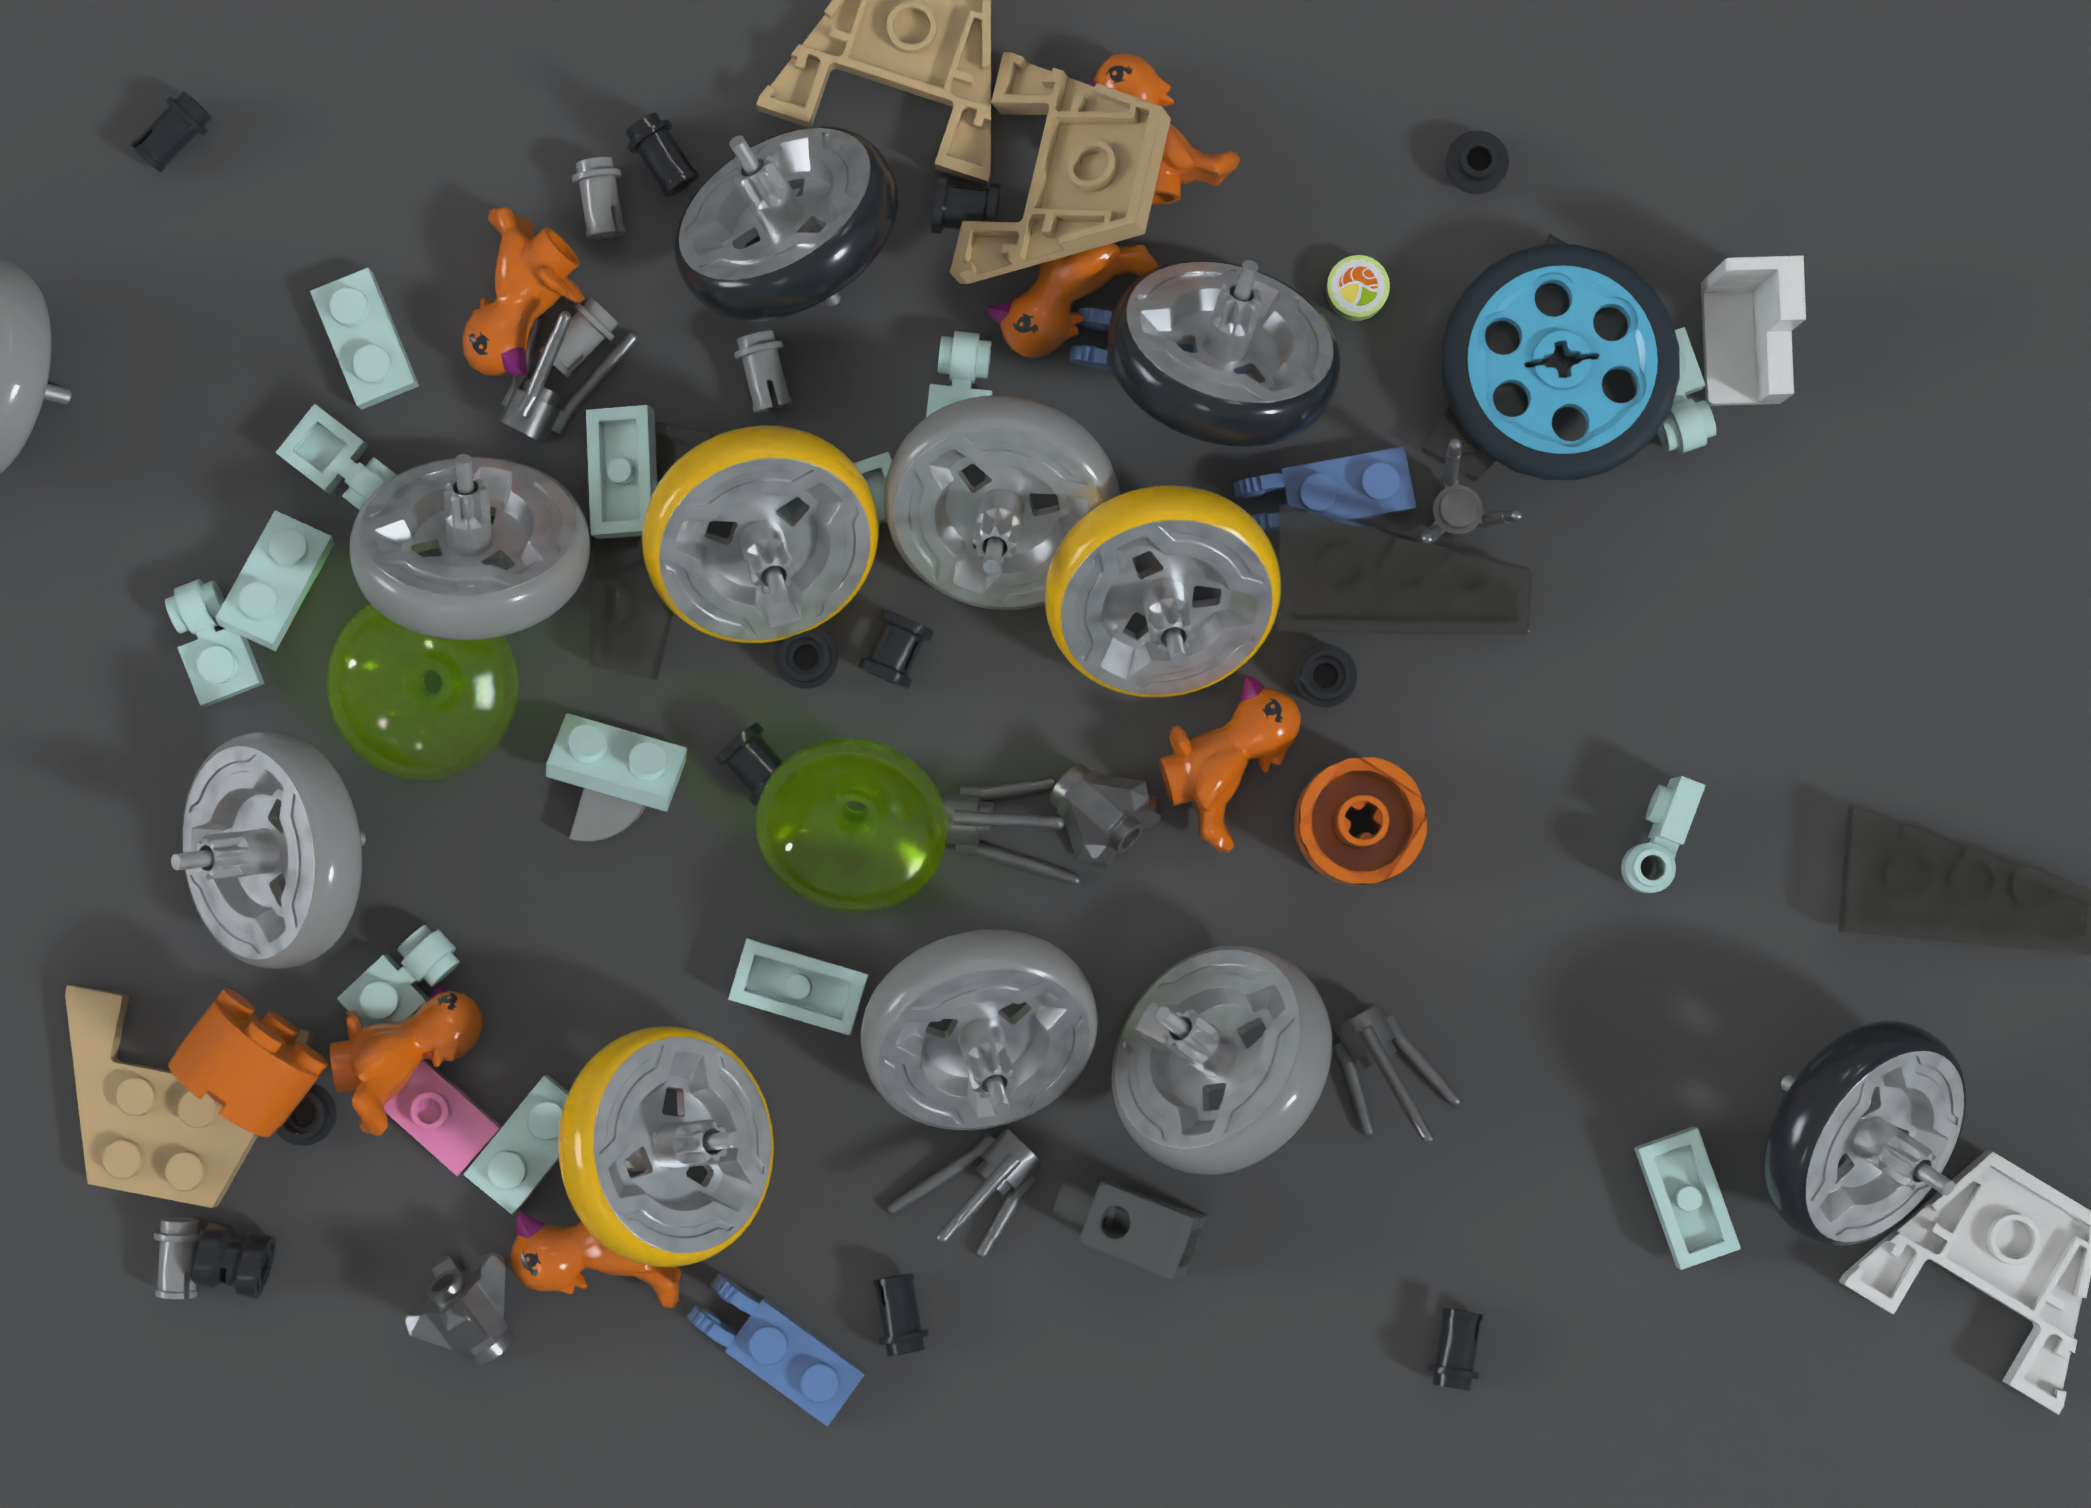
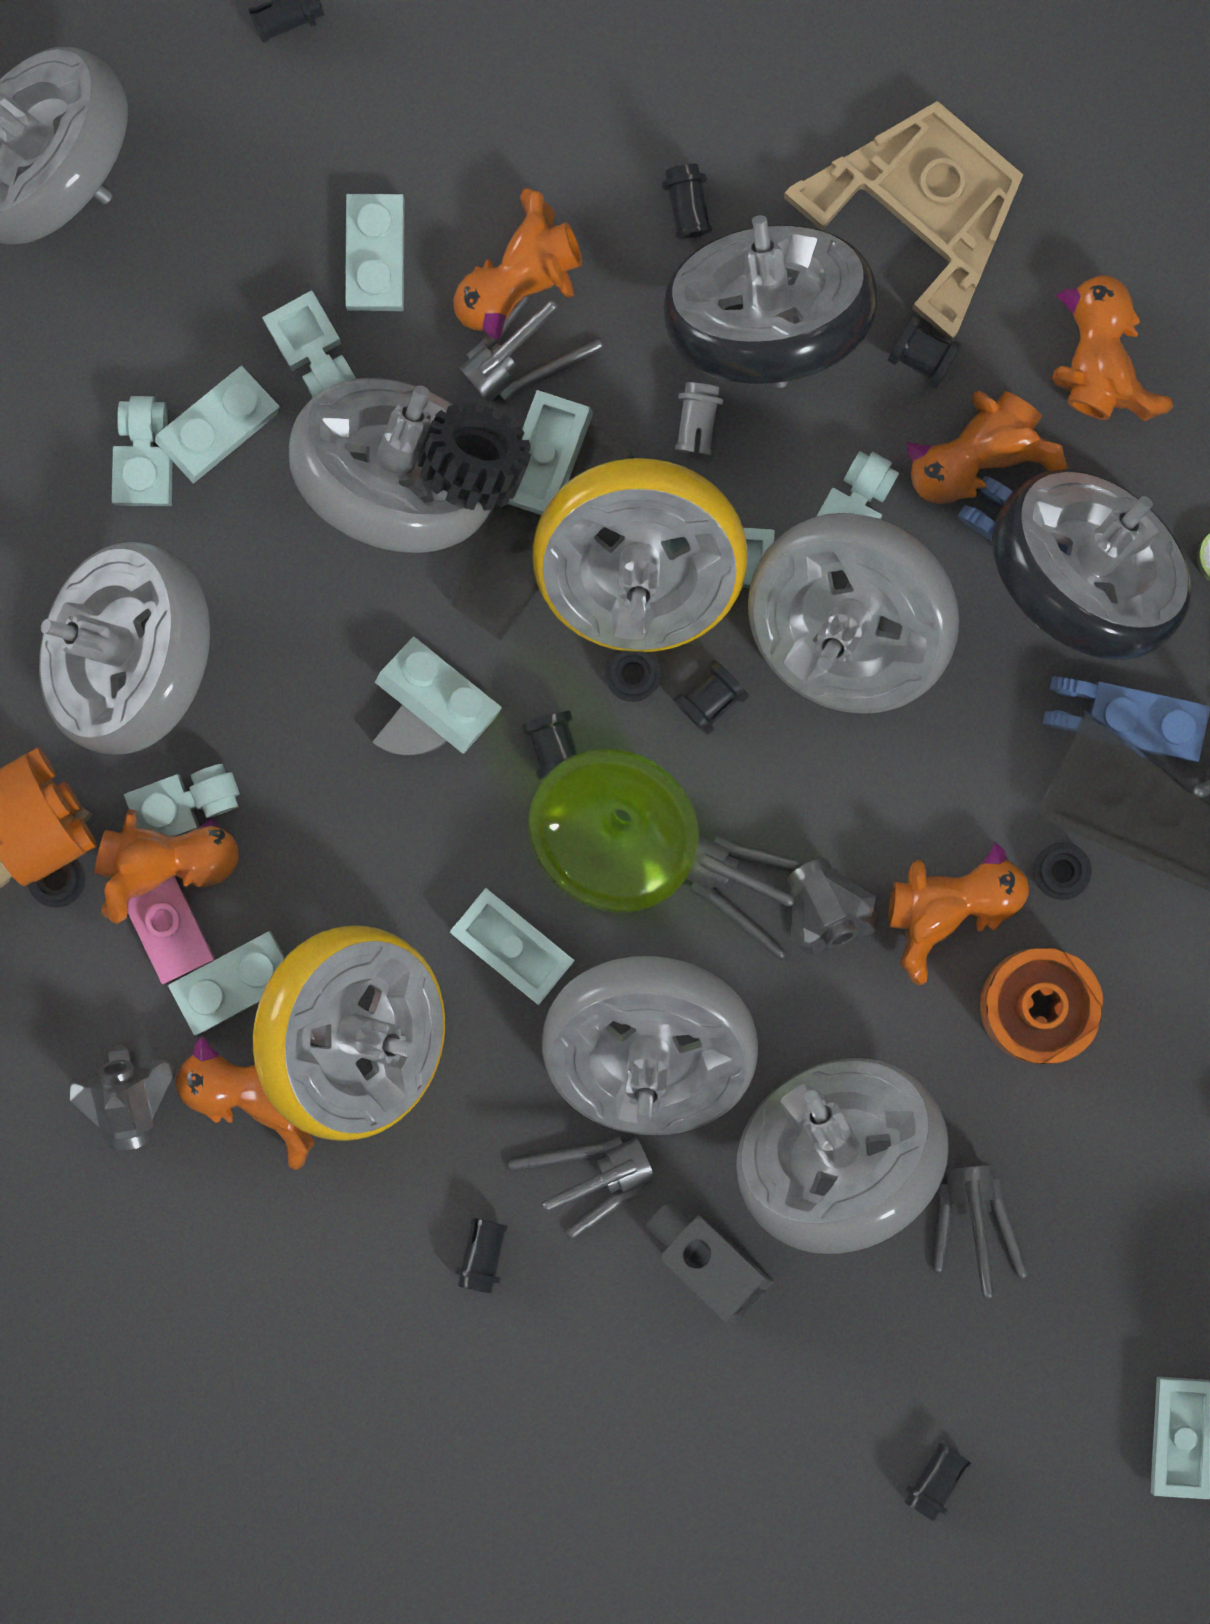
camera: 30 degrees right, 0 degrees up
(391, 716) = (267, 576): clear neon green dish -> none
(529, 526) = (451, 469): none -> black tyre
(583, 335) = (564, 323): light grey pin -> none
(600, 197) = (621, 216): light grey pin -> none
(782, 1352) = (371, 1246): medium blue hinge -> none
(1089, 176) = (1041, 368): tan wing -> none
(1146, 558) = (955, 710): flat silver wheel -> none

